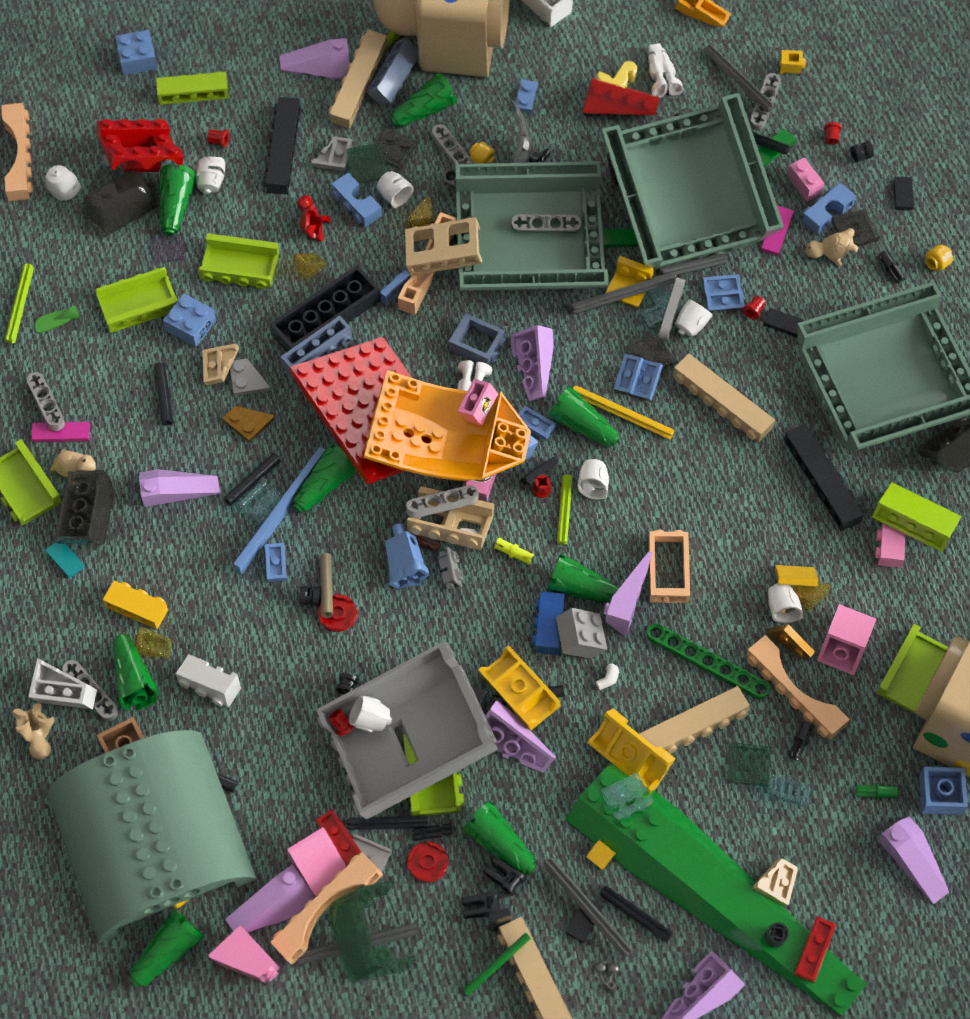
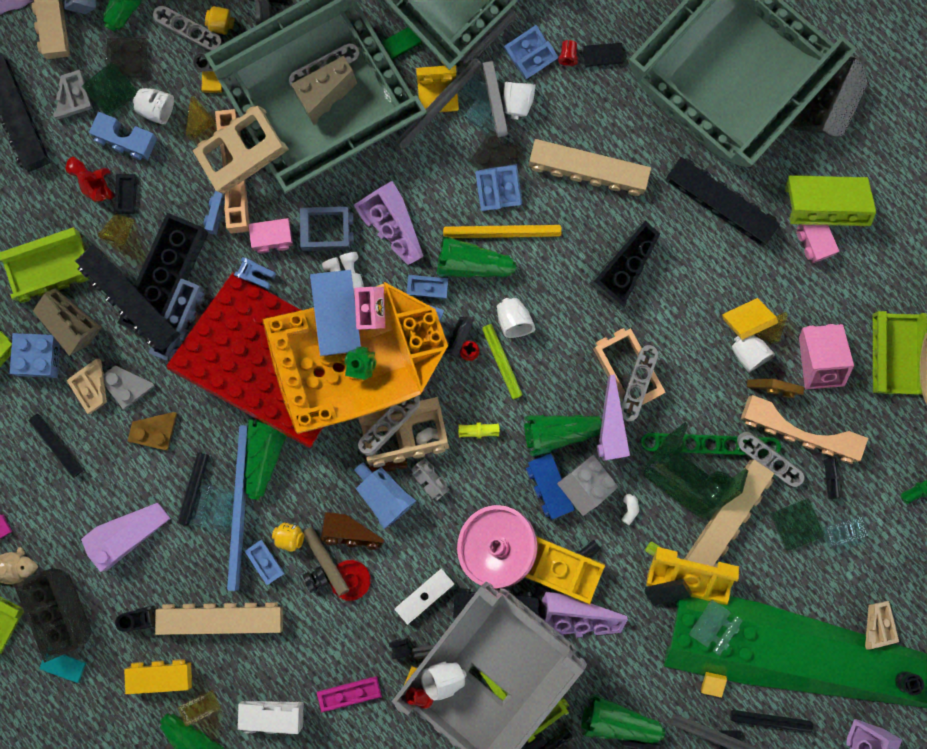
camera: 30 degrees left, 20 degrees up
(149, 554) = (140, 619): none -> black piece
(213, 586) = (219, 620): none -> tan brick
(230, 306) = (66, 321): none -> dark tan wedge
(282, 700) = (349, 694): none -> dark pink tile
(289, 307) = (127, 297): none -> black brick
(307, 551) = (288, 537): none -> yellow head
(332, 242) = (125, 194): none -> black tile
(357, 570) = (345, 530): none -> reddish brown slope
(379, 657) = (415, 605): none -> white tile
(399, 340) = (247, 272): none -> medium blue piece
(430, 324) = (271, 235): none -> bright pink brick
(445, 437) = (360, 363): none -> green brick
(446, 395) = (335, 312): none -> medium blue tile
(448, 196) = (210, 83): none -> yellow tile
(479, 641) = (497, 546): none -> bright pink dish
(537, 235) = (324, 87): none -> dark tan wedge
(602, 754) = (668, 592): none -> black tile
(666, 672) = (688, 483): none -> clear green windscreen
(672, 577) = (635, 382): none -> light grey beam
(709, 484) = (622, 270): none -> black wedge
(755, 694) = (770, 459): none -> light grey beam

